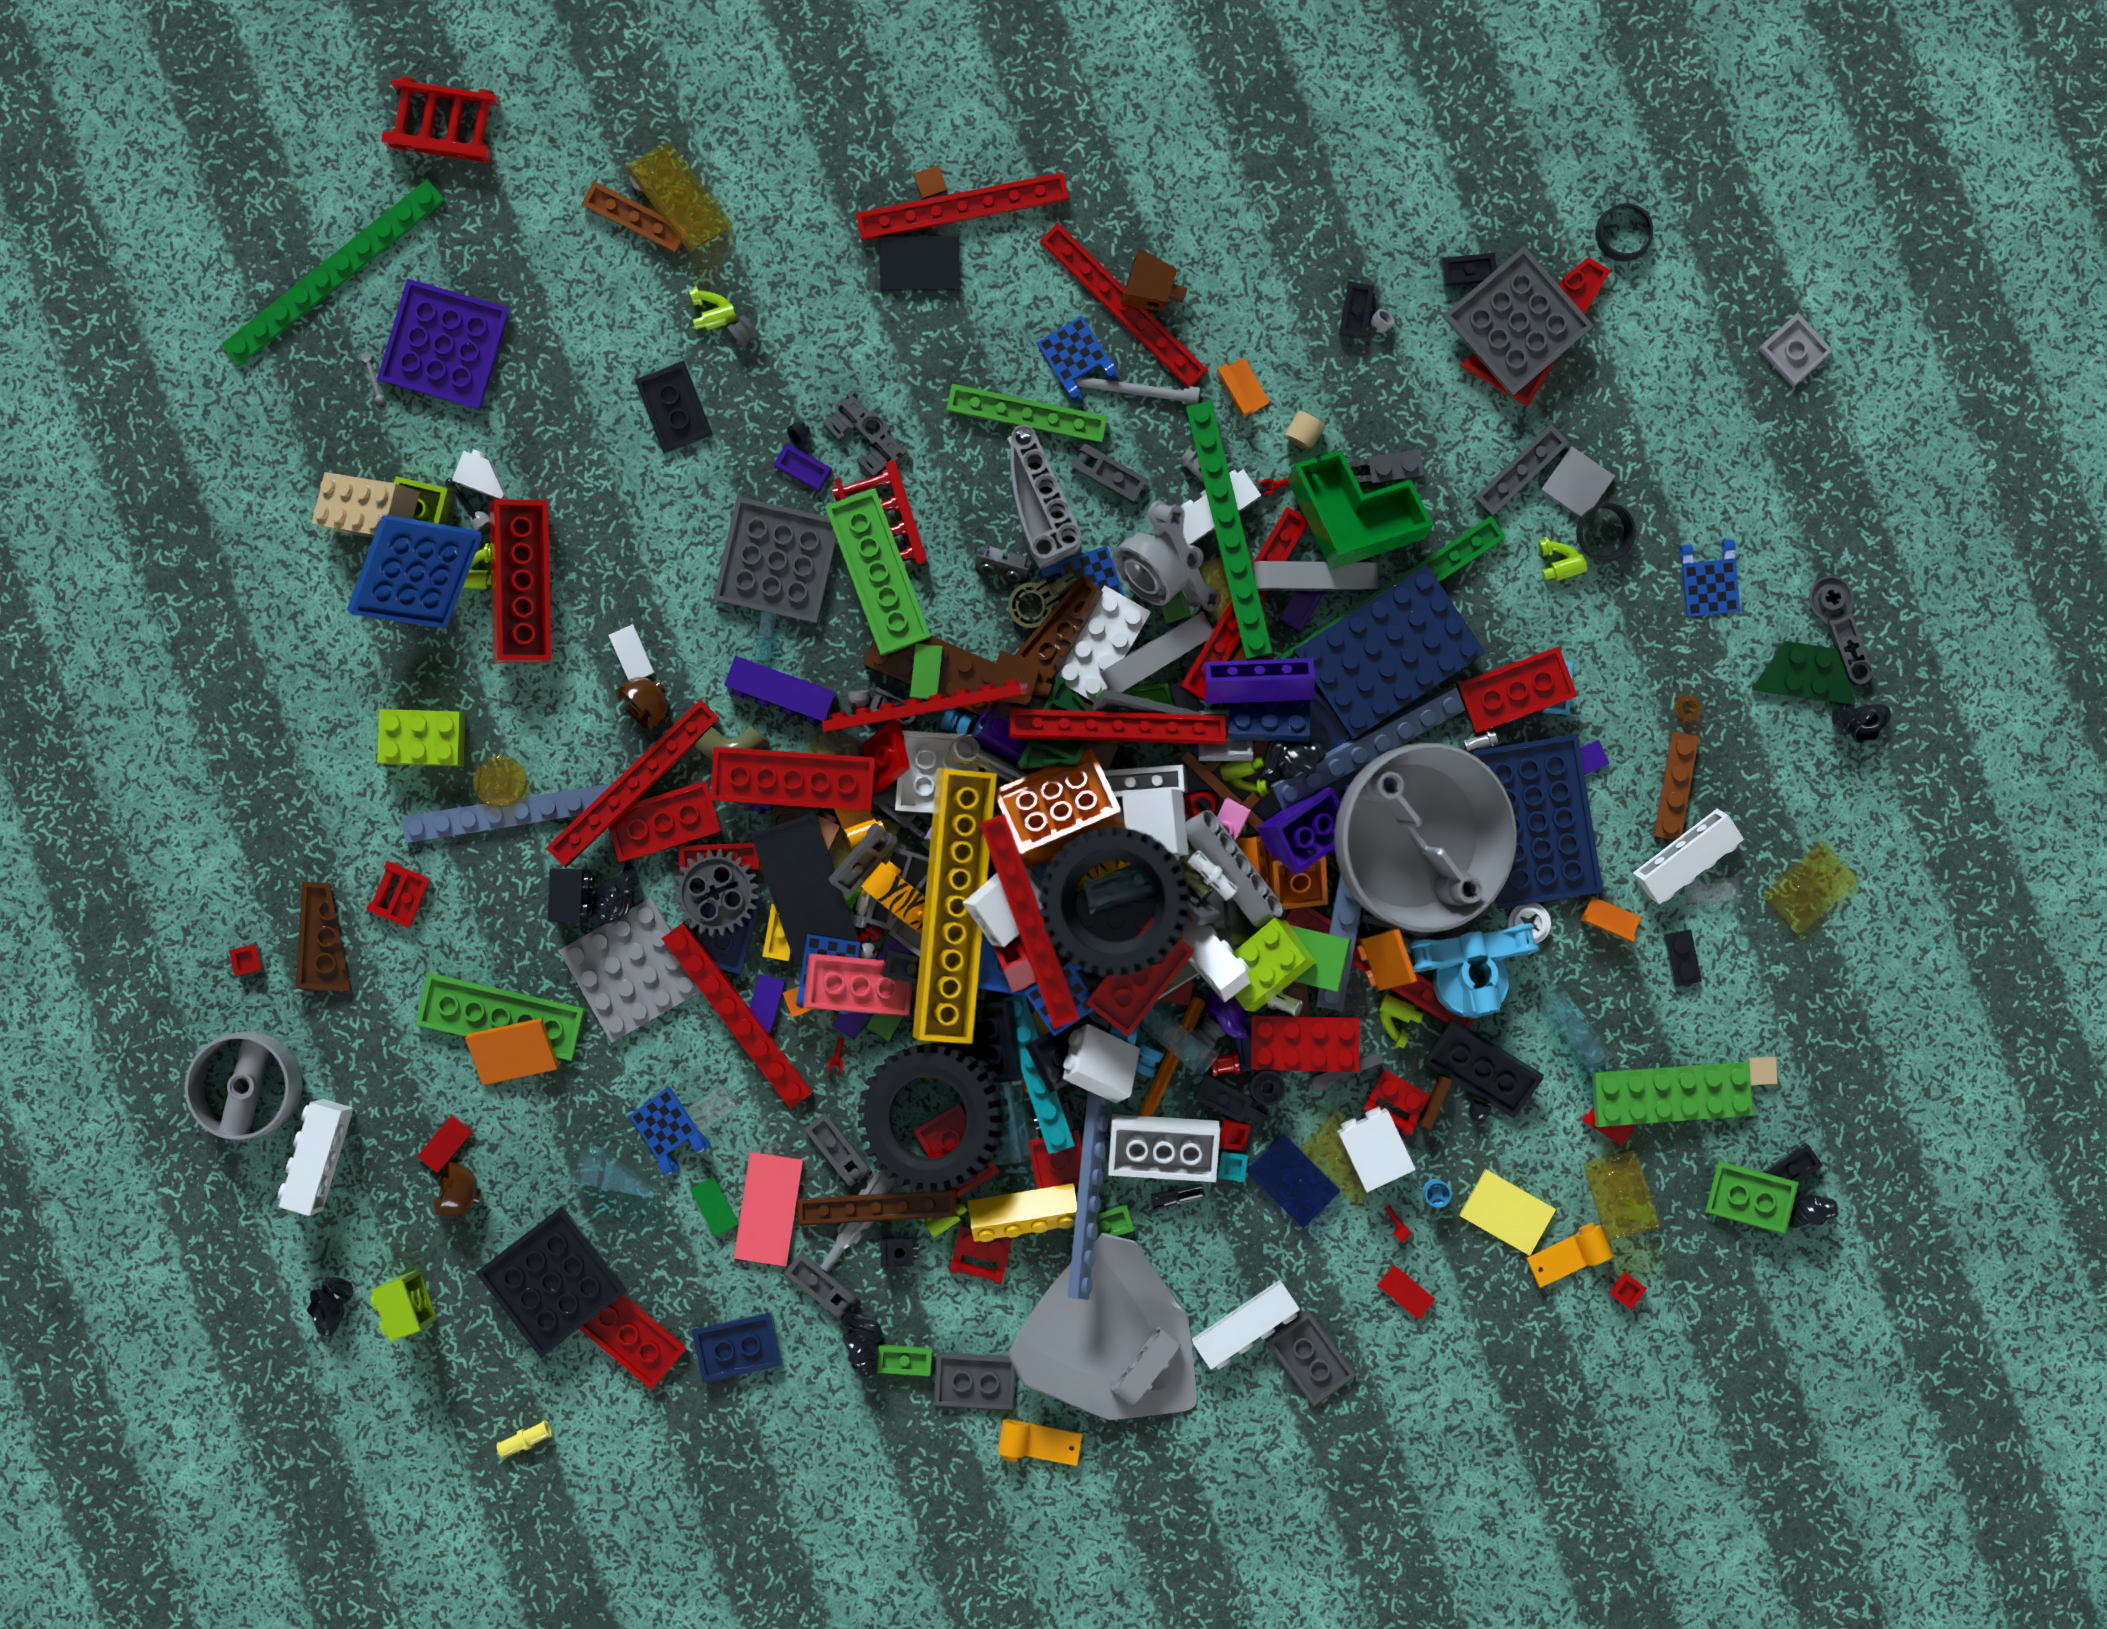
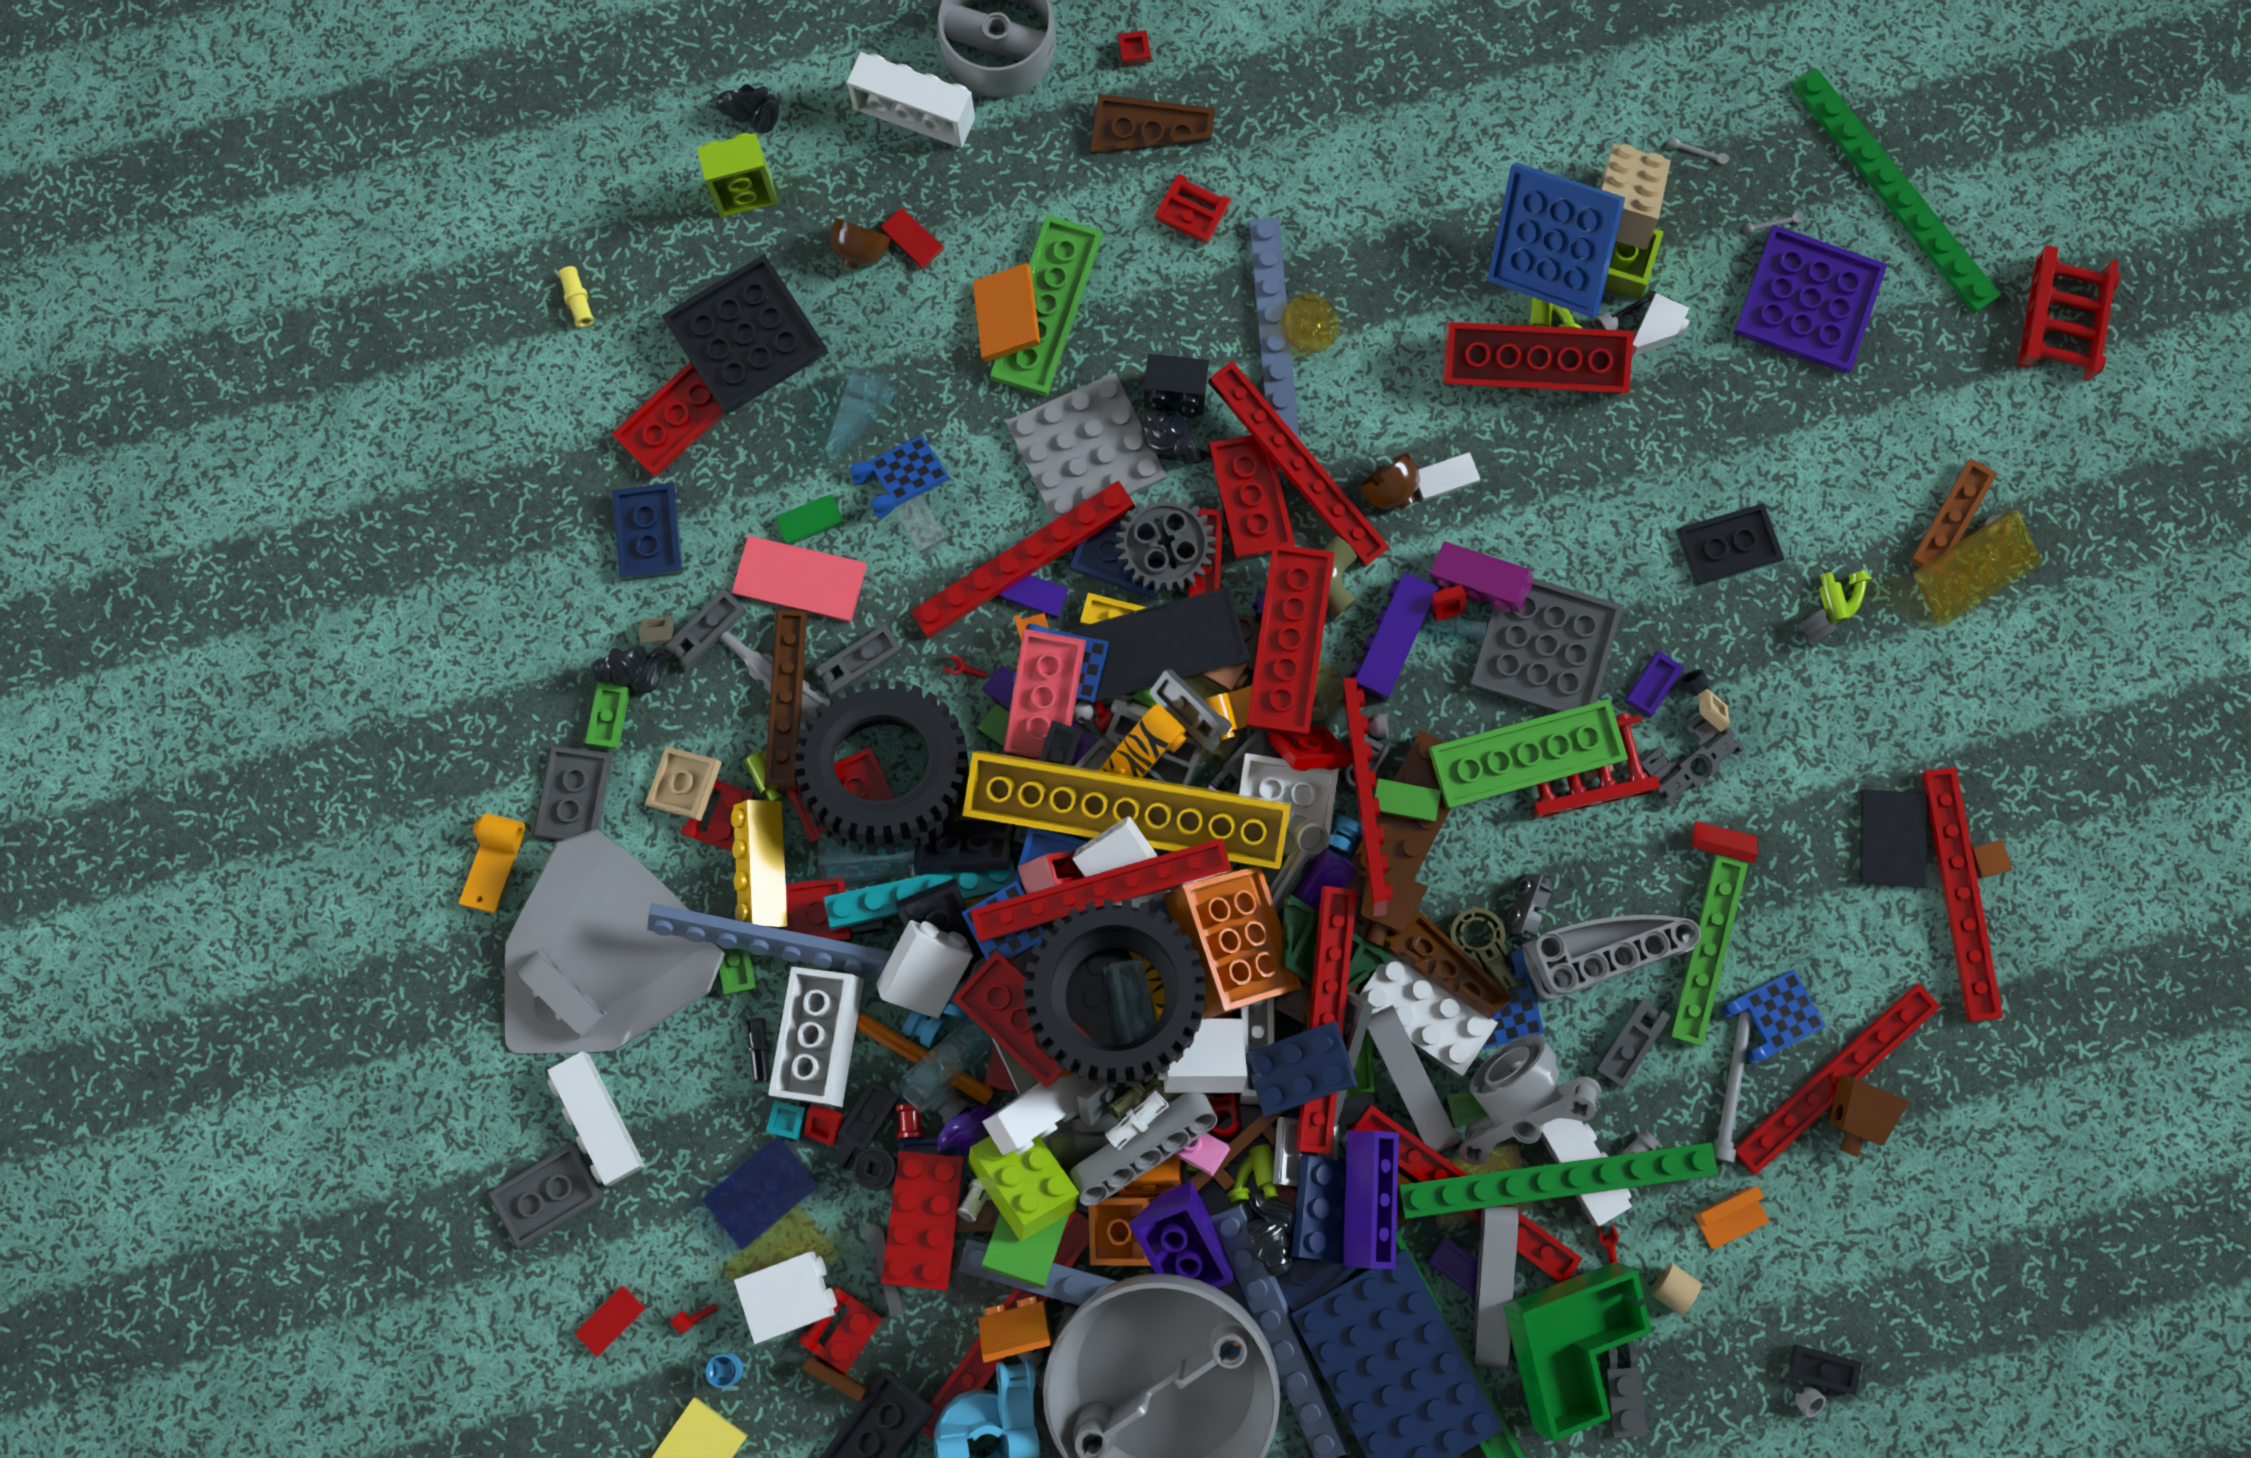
camera: 95 degrees right, 10 degrees down
(314, 425) = (1721, 159): none -> light grey hinge
(421, 737) = (1366, 242): lime brick -> none
(724, 619) = (1482, 577): none -> magenta brick
(748, 646) = (1448, 603): none -> red plate
(823, 416) = (1714, 710): none -> tan tile
(825, 1327) = (656, 630): none -> dark tan plate
(888, 1248) = (740, 727): black brick -> none
(935, 403) = (1724, 842): none -> red tile
(958, 1287) = (683, 783): none -> tan tile
(1161, 744) = (1300, 1069): none -> dark blue plate
(1401, 1010) = (957, 1337): lime plant -> none
(1479, 1112) = (817, 1432): black hinge -> none

